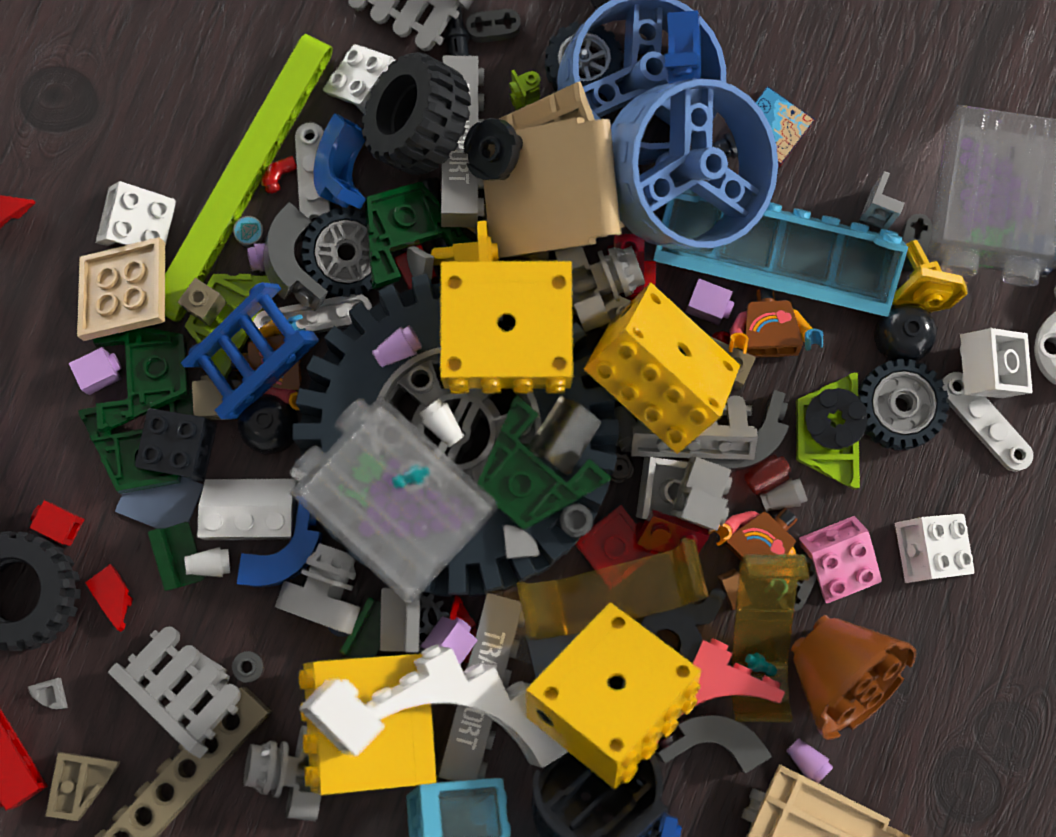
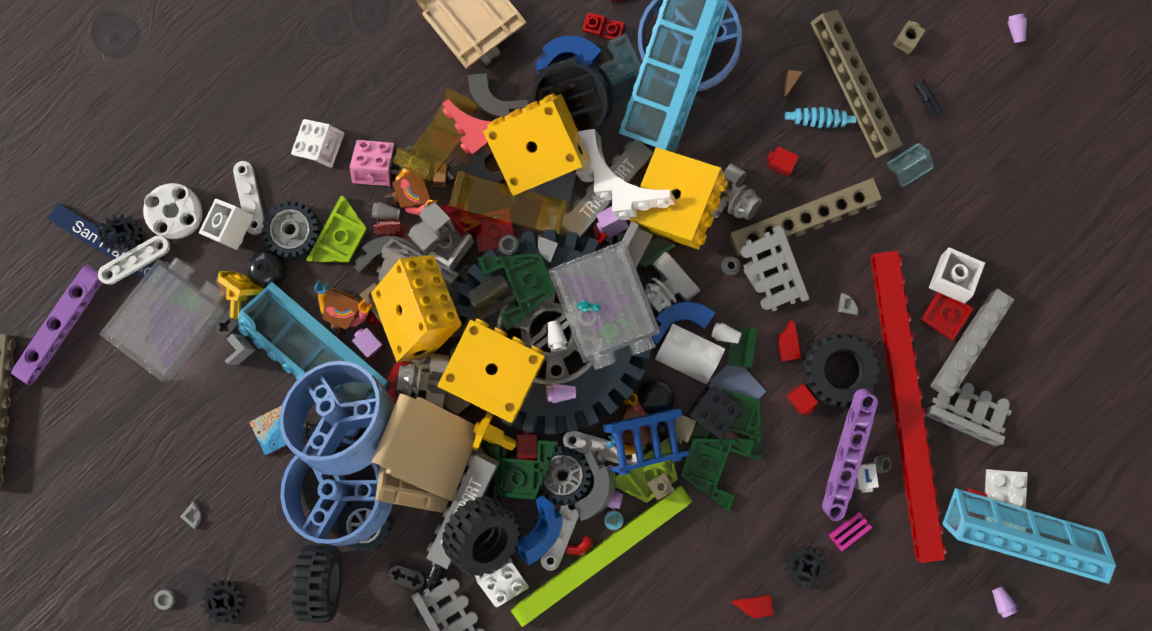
camera: 150 degrees left, 5 degrees up
(77, 784) = (852, 247): dark tan wing -> none
(96, 370) = (740, 478): lavender brick -> none
(121, 289) = (703, 518): tan plate -> none
(134, 215) = (677, 560): white bracket -> none
(342, 716) = (688, 200): white brick -> none
(420, 262) = (523, 444): light grey tile -> none
(506, 152) = (437, 487): black plate -> none
(524, 89) = (409, 522): lime hinge -> none
(684, 46) = (304, 491): blue arch -> none
(758, 664) = (448, 127): teal piece -> none
(809, 761) = (448, 63): lavender cone -> none
(848, 672) = (403, 98): dark orange cone -> none
(852, 412) = (333, 249): black plate -> none

